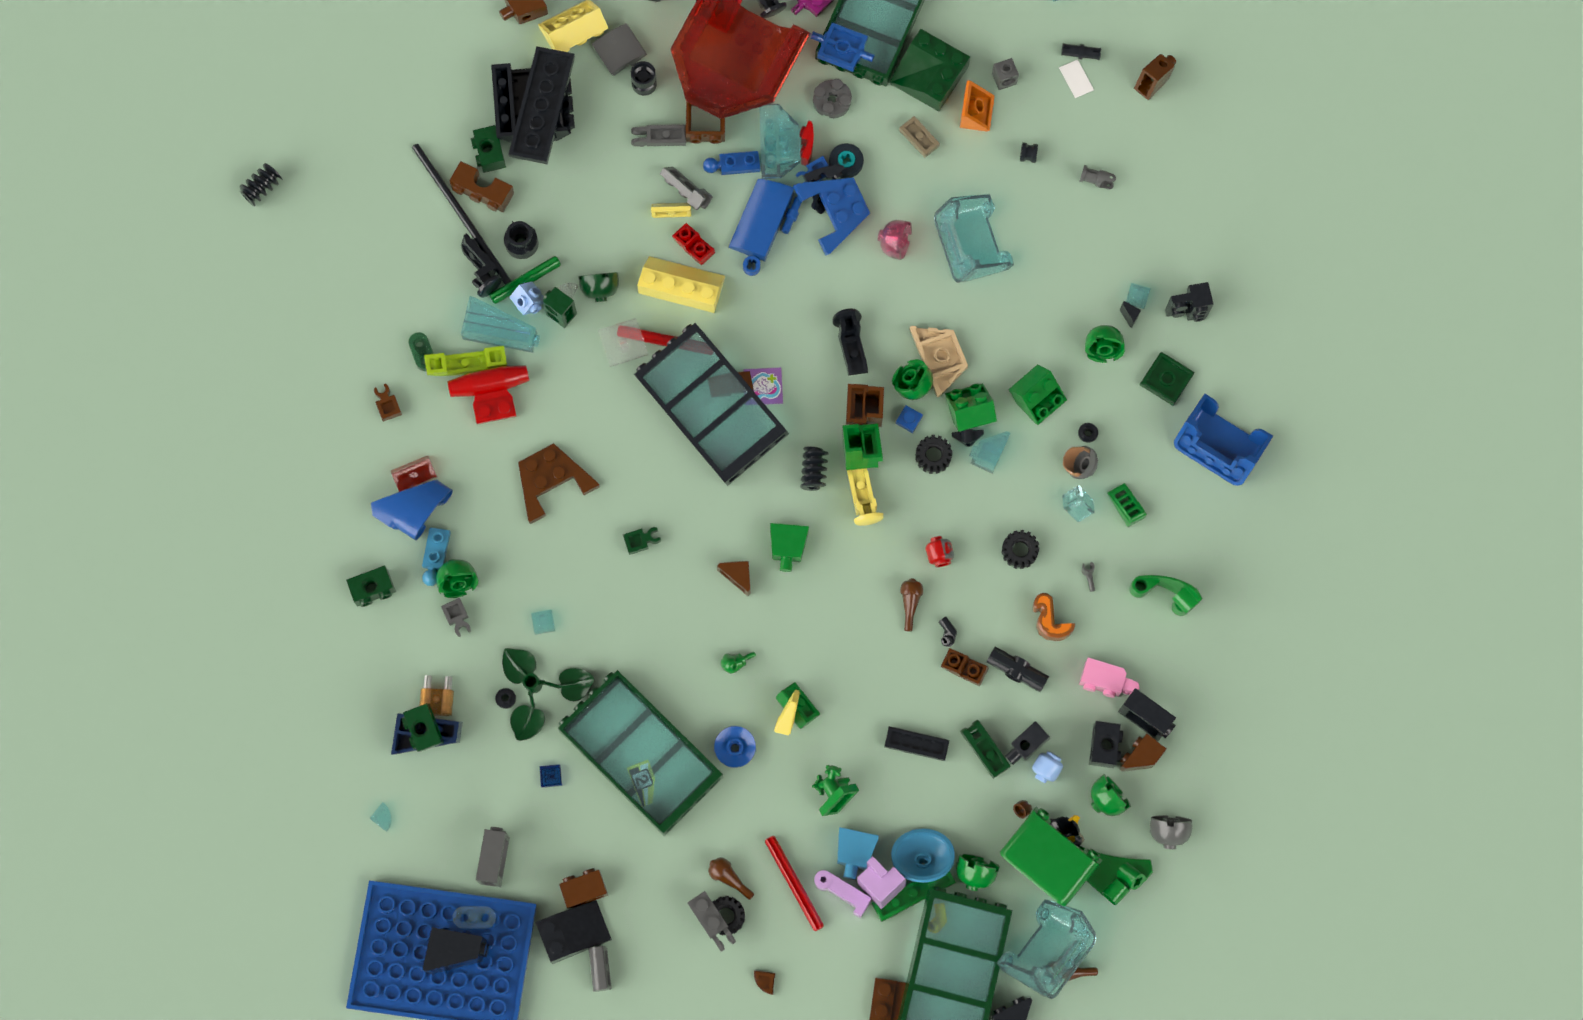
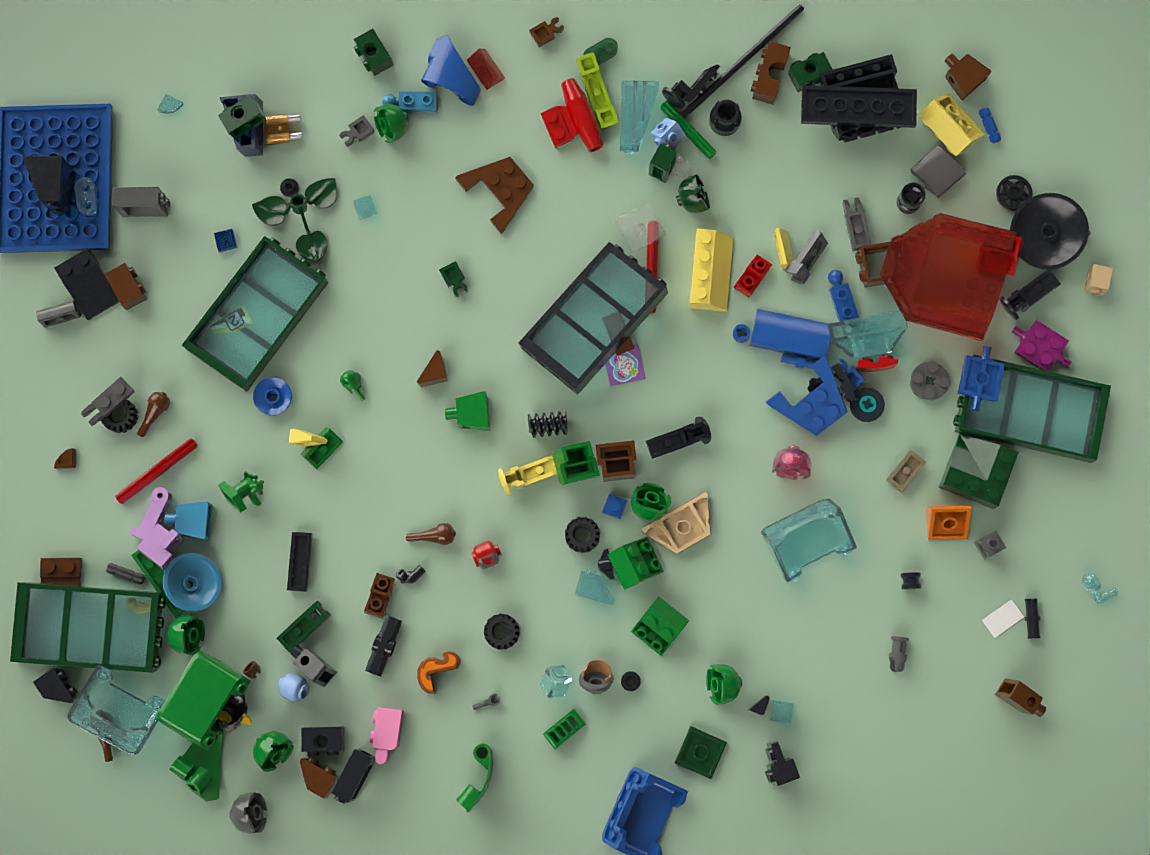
camera: 85 degrees right, 5 degrees up
(900, 931) = (125, 573): none -> dark grey axle

